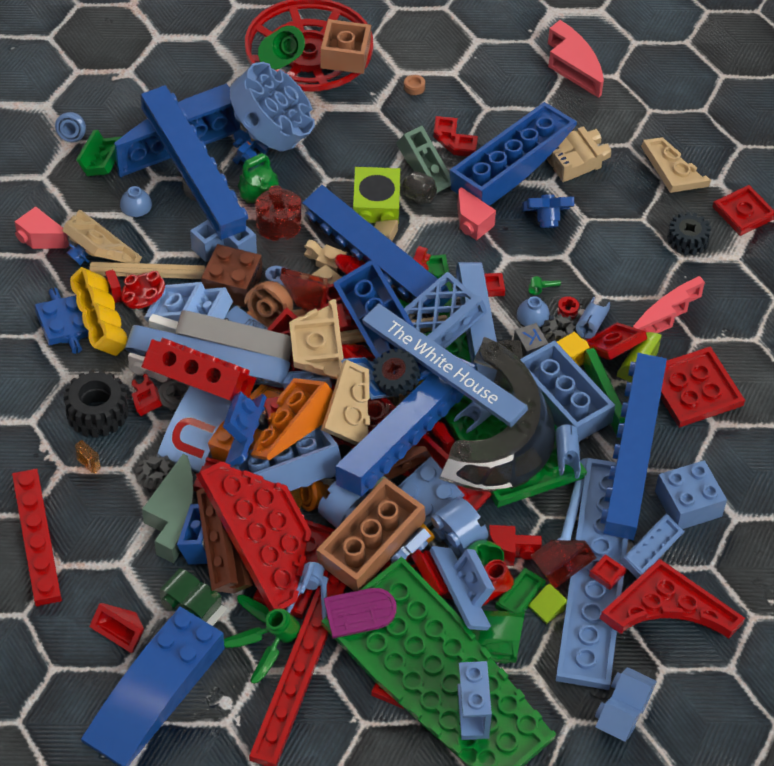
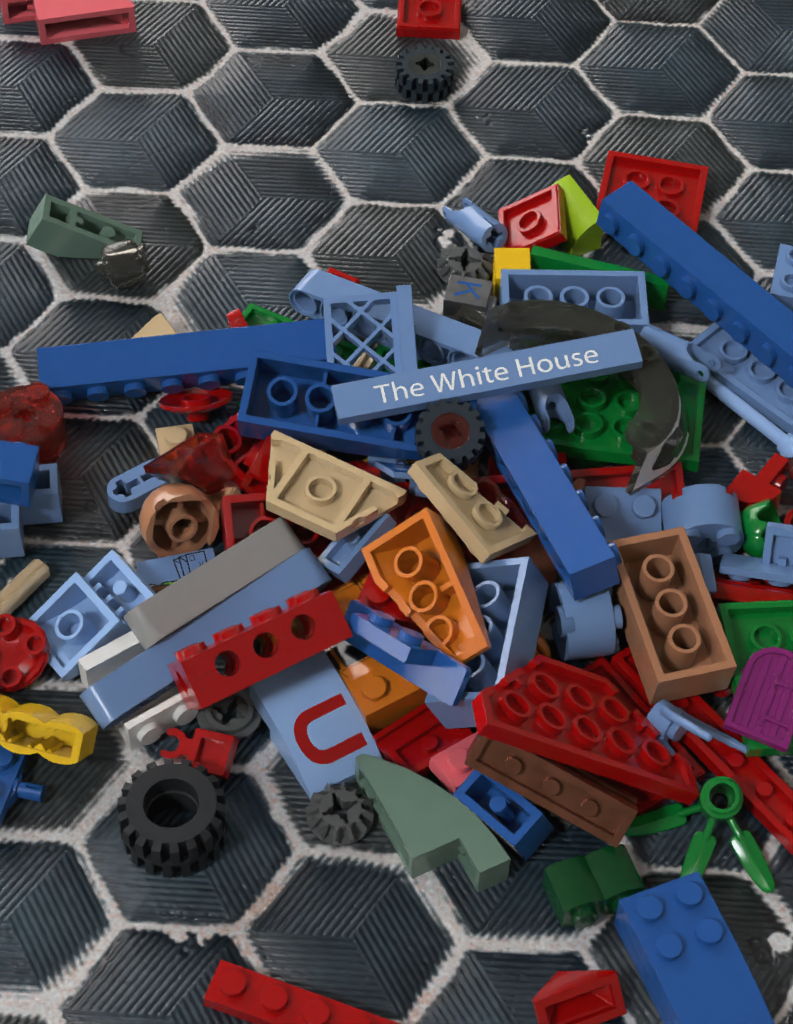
camera: 55 degrees left, 0 degrees up
(87, 456) = (254, 881): clear orange tile -> none
(234, 270) = (82, 530): copper brick -> none
(323, 256) = (137, 421): tan plate -> none
(377, 193) = (91, 307): lime brick -> none
(455, 143) = (82, 190): red tile -> none
(474, 215) = (213, 239): coral slope -> none
(512, 154) = (169, 148): blue slope -> none
(533, 311) = (417, 270): medium blue brick -> none
(537, 284) = (378, 247): green hand -> none
(548, 208) = (280, 164): blue plant -> none
(568, 302) = (436, 231): red bush -> none
(579, 154) = (210, 92): tan hips -> none
(663, 312) = (522, 157): coral slope -> none
(671, 167) = (320, 32): tan wing -> none

